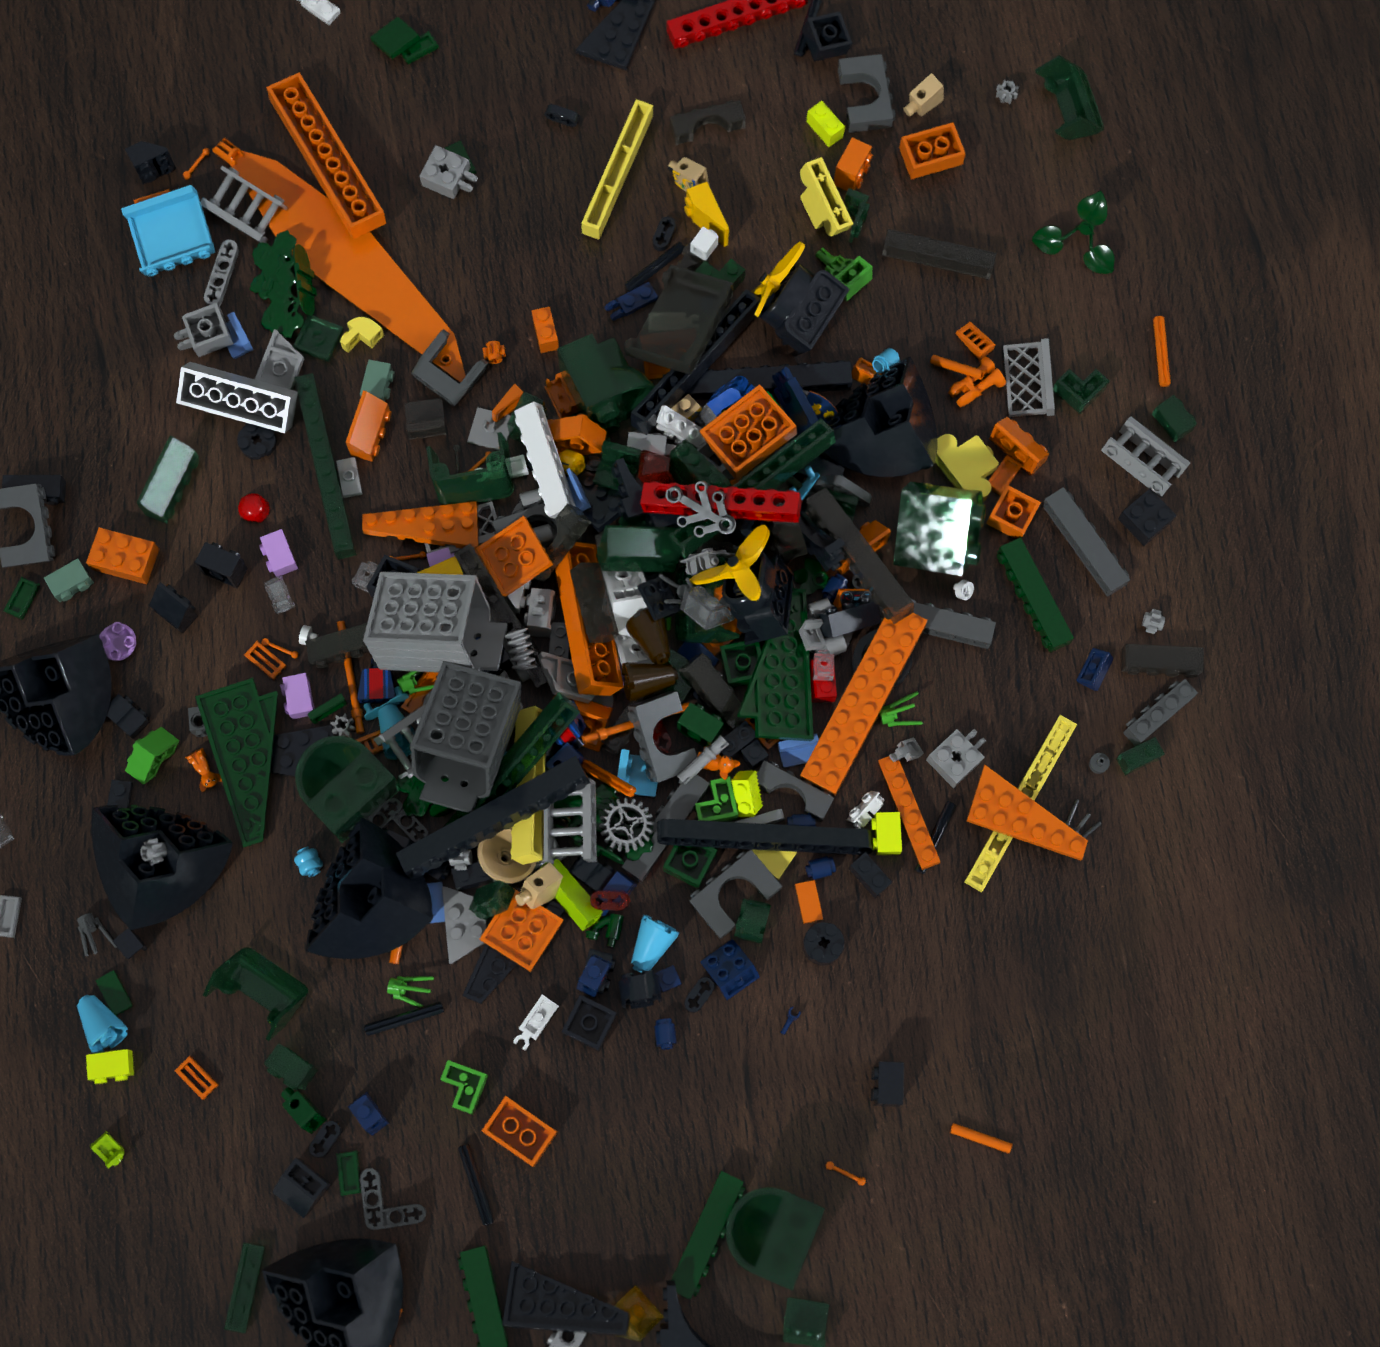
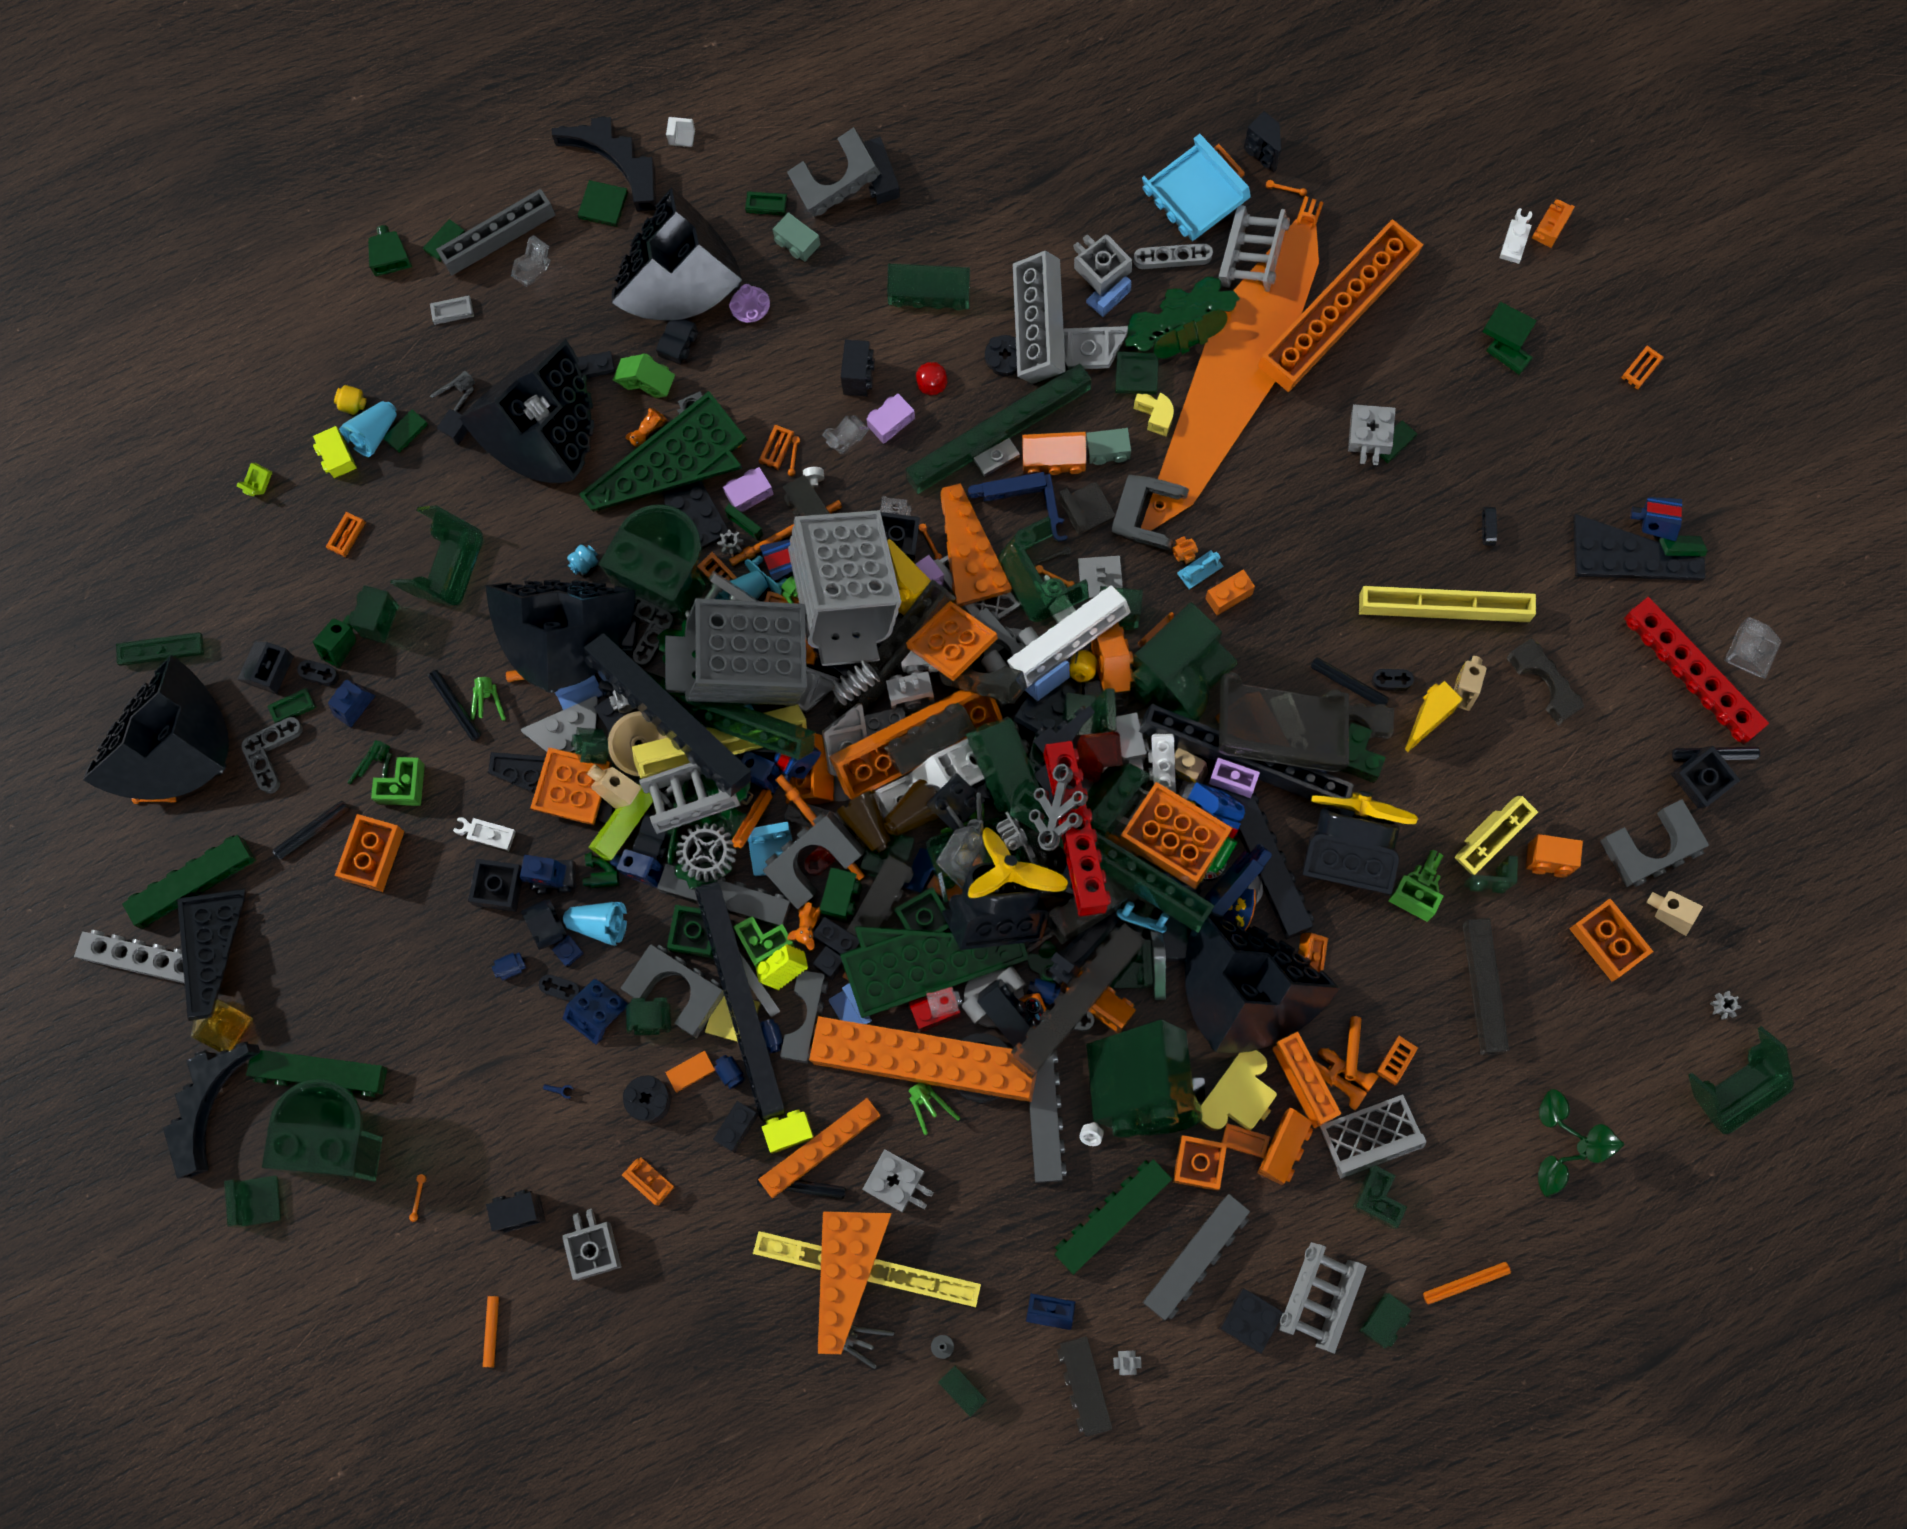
camera: 80 degrees right, 0 degrees up
(62, 1036) = (349, 399): none -> yellow head
(122, 555) = (837, 275): orange brick -> none
(173, 607) = (799, 341): black slope -> none
(386, 460) = (1020, 486): none -> dark blue hinge
(424, 1101) = (377, 752): none -> dark green plant
(507, 403) = (1131, 581): orange slope -> none
(514, 346) = (1200, 569): none -> medium azure hinge
(609, 905) = (618, 862): clear red beam -> none
(632, 301) = (1300, 672): dark blue hinge -> none
(703, 759) = (806, 911): light grey pin -> none
(704, 243) = (1390, 722): white brick -> none
(710, 375) = (1234, 778): none -> lavender brick
(812, 635) = (975, 980): light grey bracket -> none
(825, 124) = (1596, 810): neon yellow brick -> none
(870, 802) = (798, 1096): white hinge -> none
(884, 360) = (1331, 965): medium azure brick -> none
(893, 964) = (648, 1181): none -> orange hinge
(908, 749) = (888, 1126): light grey plate -> none
(928, 1036) = (580, 1242): none -> light grey hinge
(974, 407) = (1306, 1080): none -> orange fence
(1162, 711) = (1025, 1403): dark grey brick -> none

